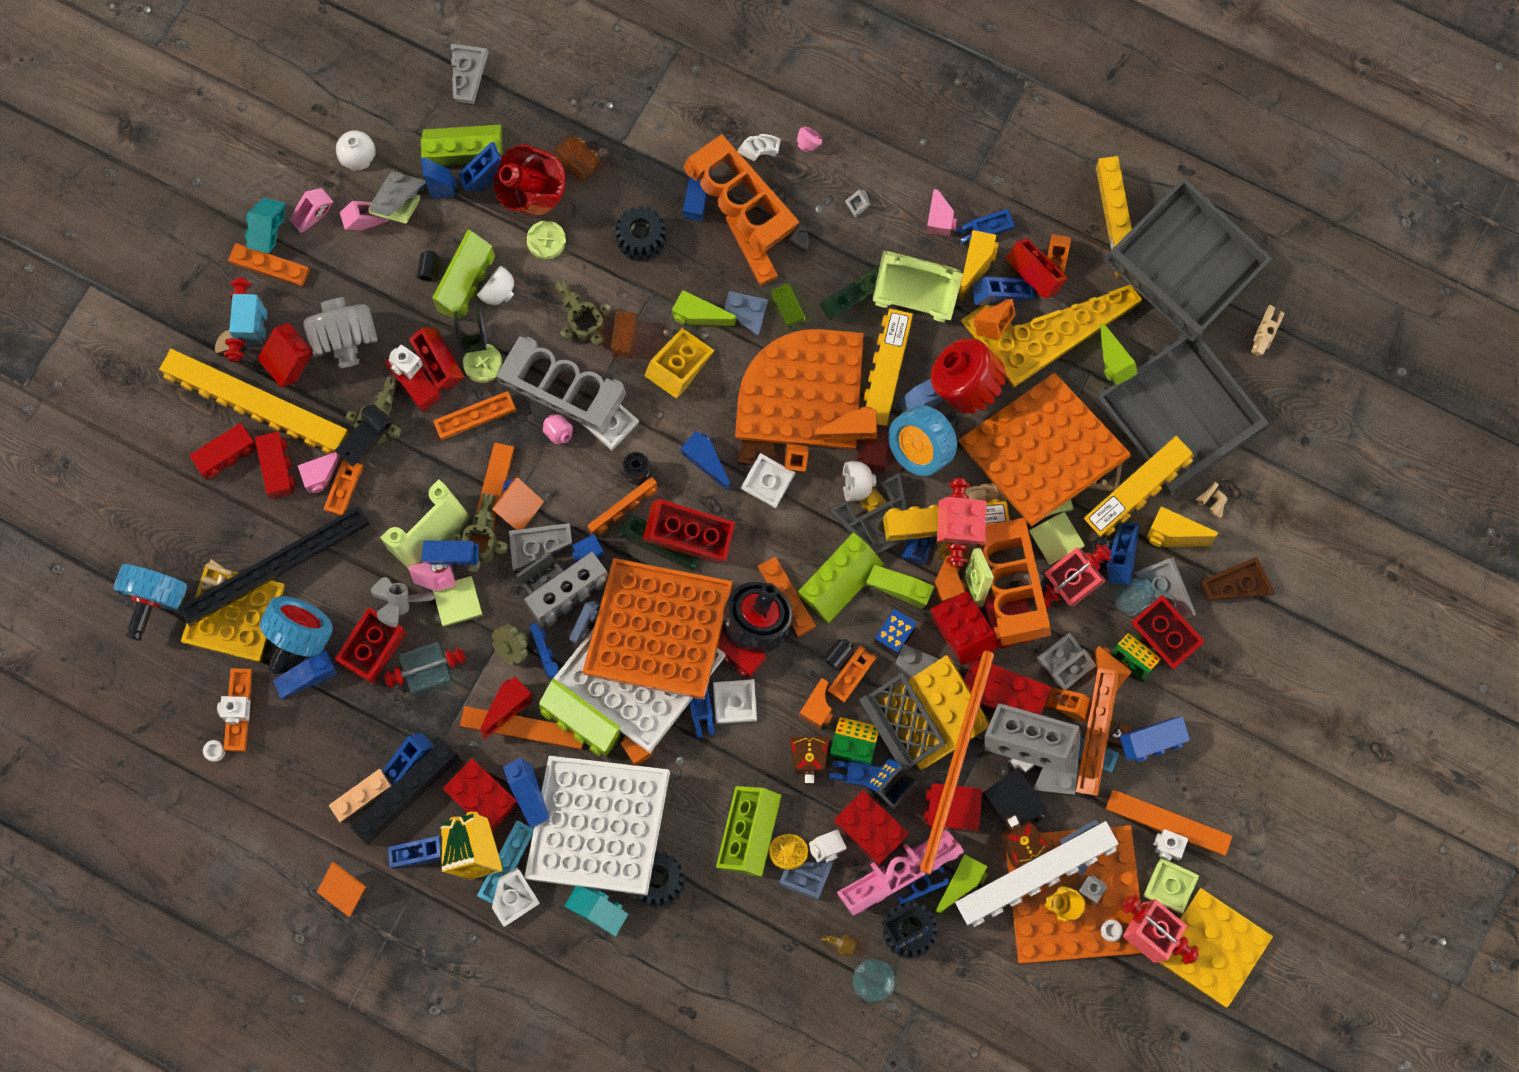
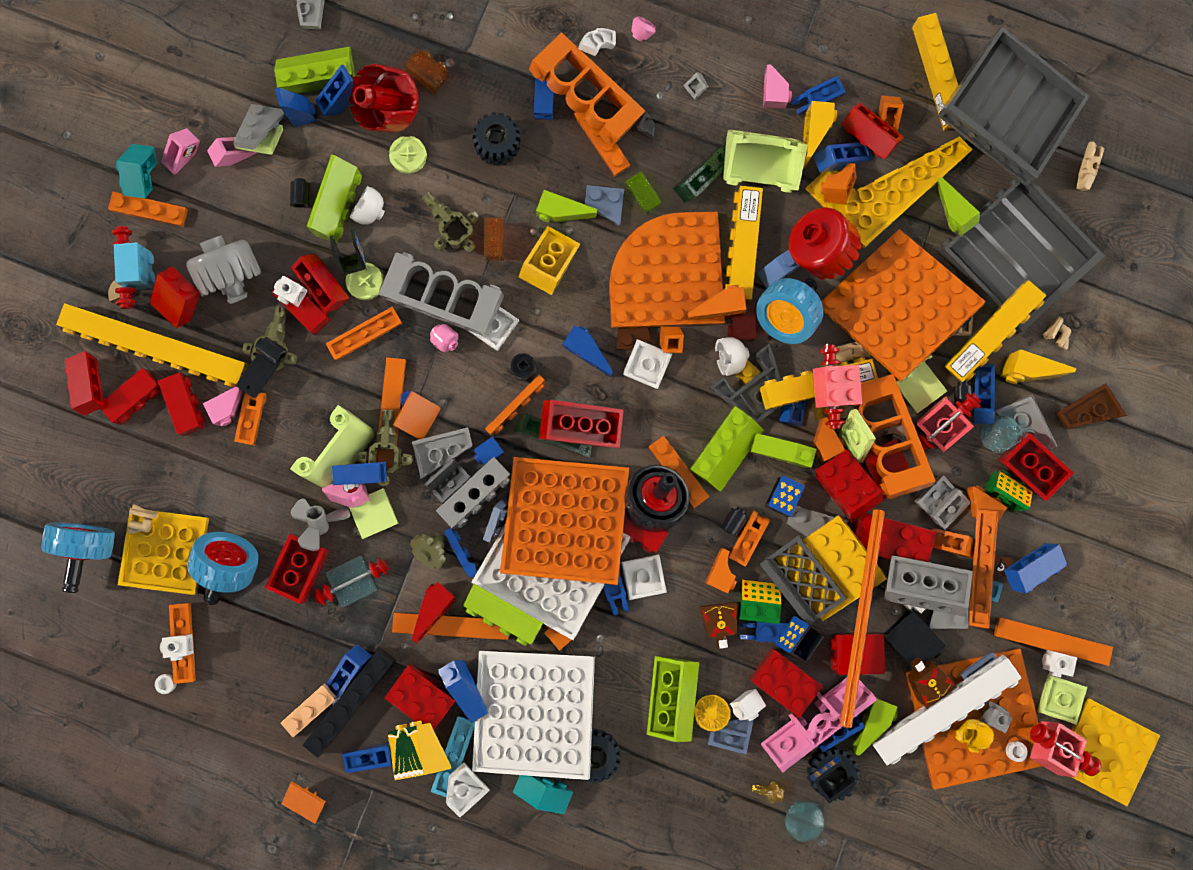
camera: 15 degrees left, 10 degrees up
(178, 431) = (84, 383): none -> red brick
(273, 566) = (193, 504): black plate -> none
(305, 675) = (241, 602): blue slope -> none
(355, 150) = (214, 87): white cylinder -> none

